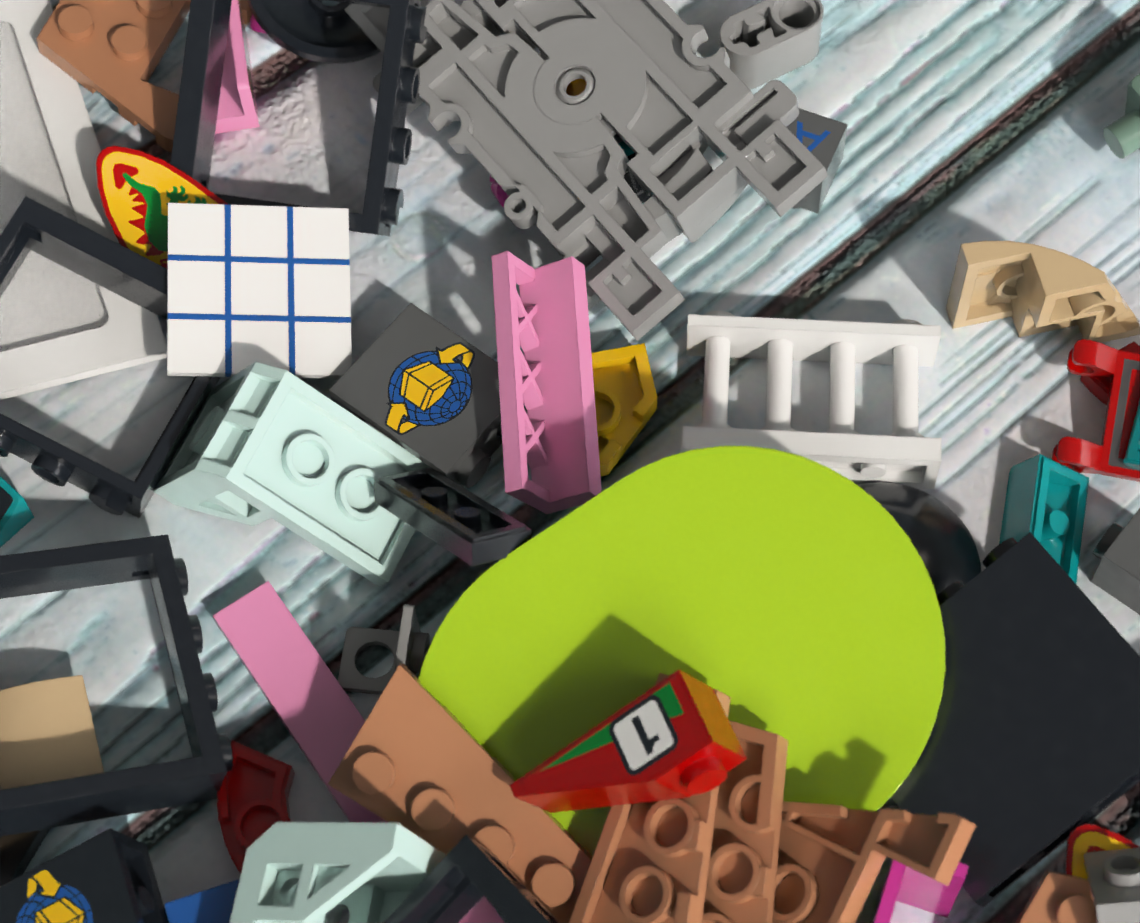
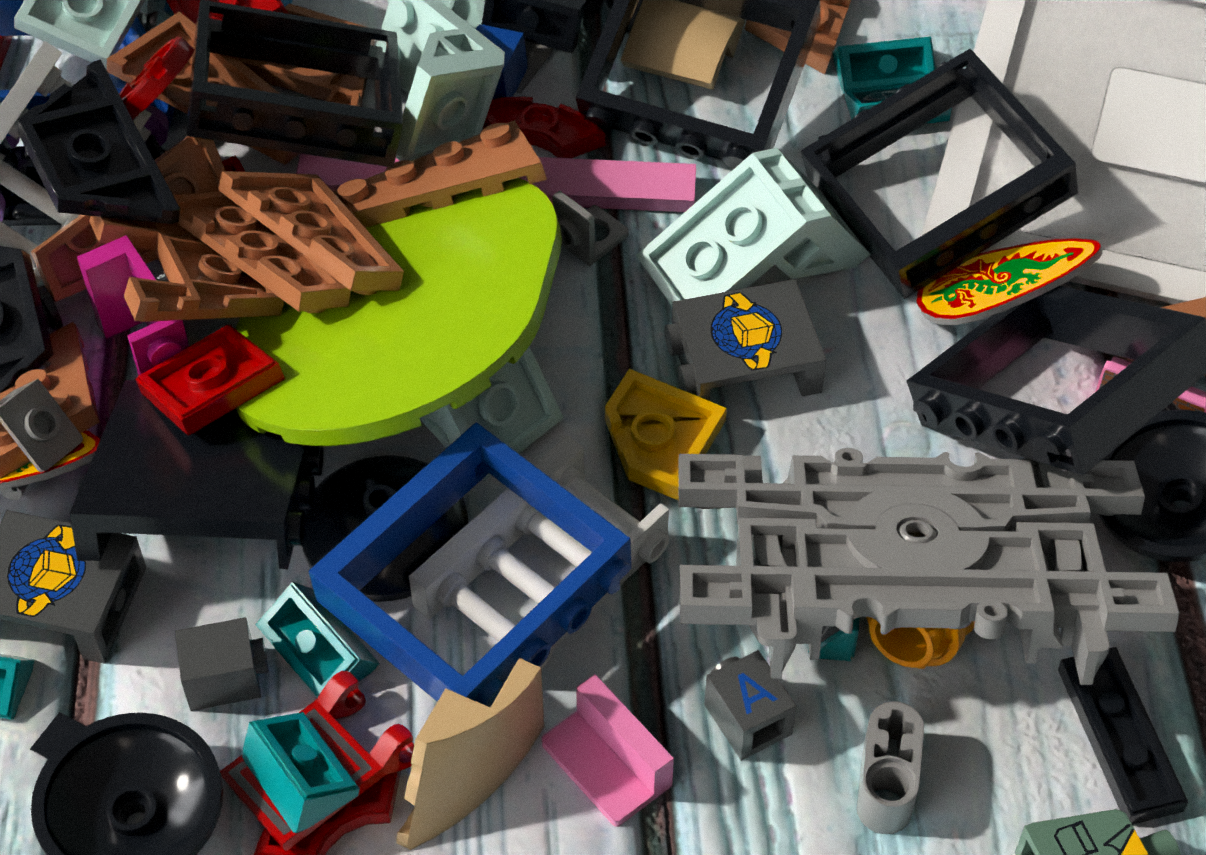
camera: 125 degrees right, 10 degrees down
(258, 290) = (909, 280): white piece -> none
(451, 515) = (623, 258): black tile -> none
(551, 381) = (684, 396): bright pink fence -> none
(651, 750) = (353, 215): red slope -> none
(910, 484) = (420, 504): none -> blue window
(930, 762) = (209, 379): none -> red tile
(932, 231) = (610, 754): none -> bright pink panel

